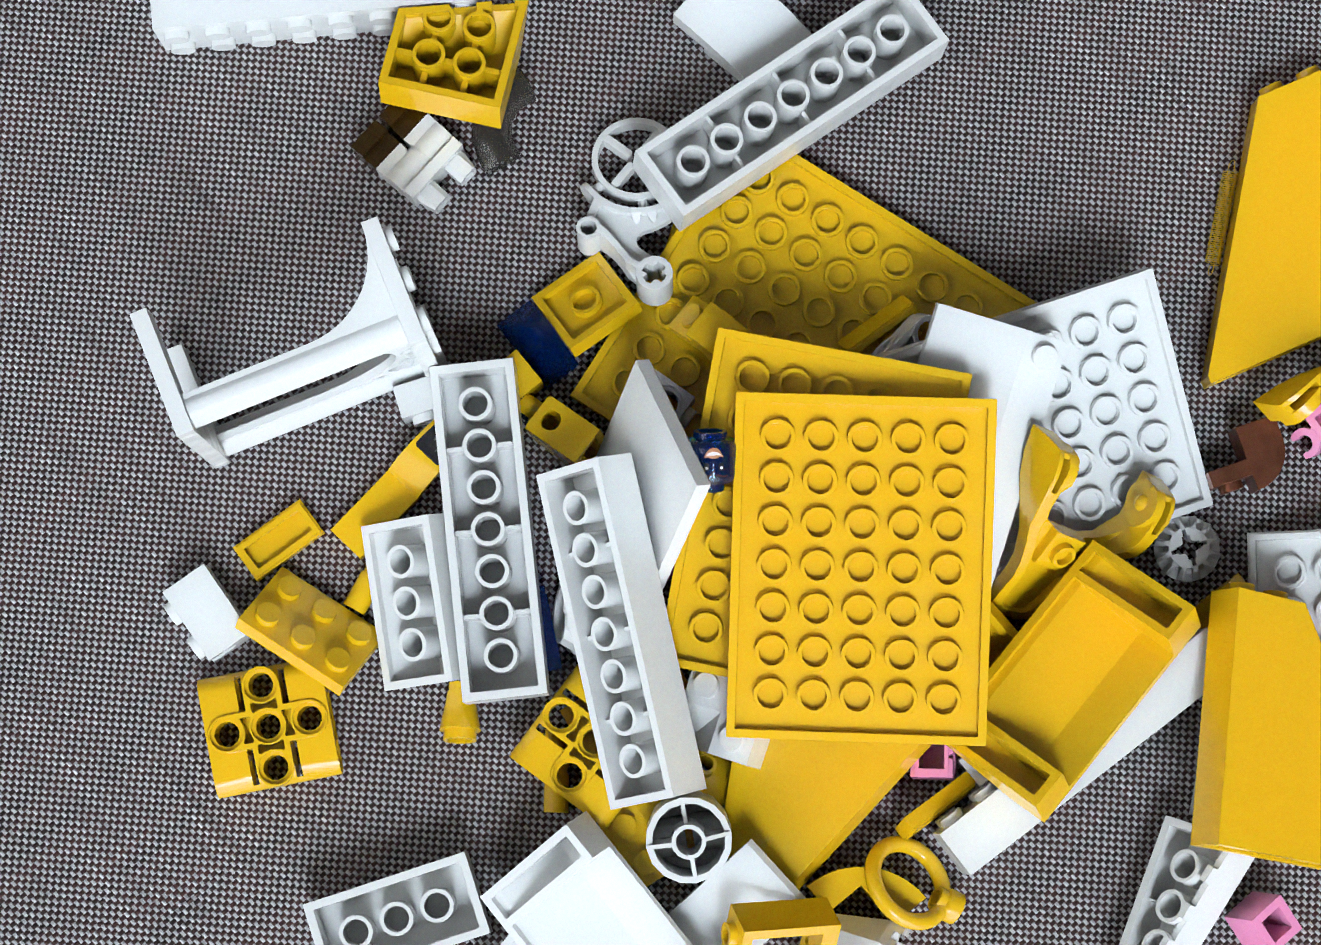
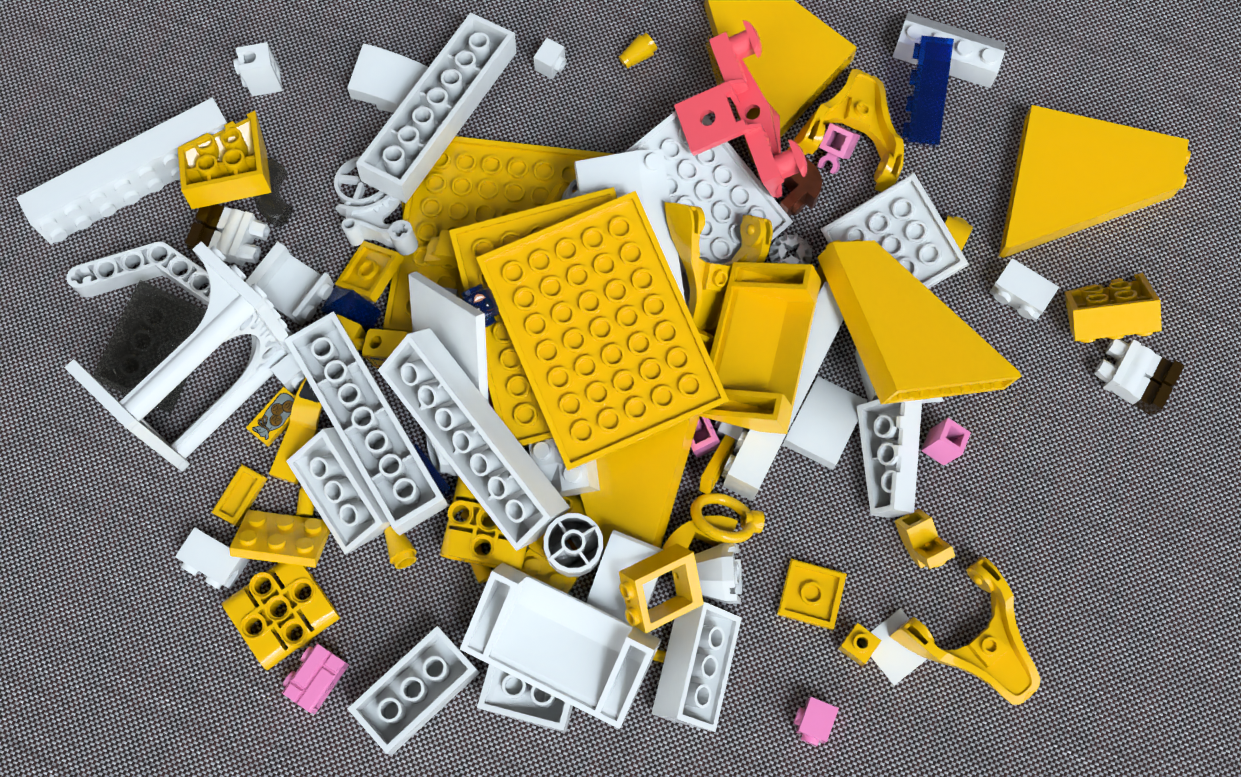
camera: 25 degrees left, 10 degrees down
(246, 275) = (144, 337): none -> clear smoke slope
(276, 838) = (314, 678): none -> bright pink brick
(286, 155) = (91, 279): none -> white beam
(369, 451) = (273, 418): none -> tile
(470, 270) = (291, 284): none -> white panel
(985, 93) = (550, 58): none -> white plate
(1114, 816) = (824, 423): none -> white slope
(1118, 139) = (638, 51): none -> yellow cone
(1230, 295) = (760, 133): none -> coral piece

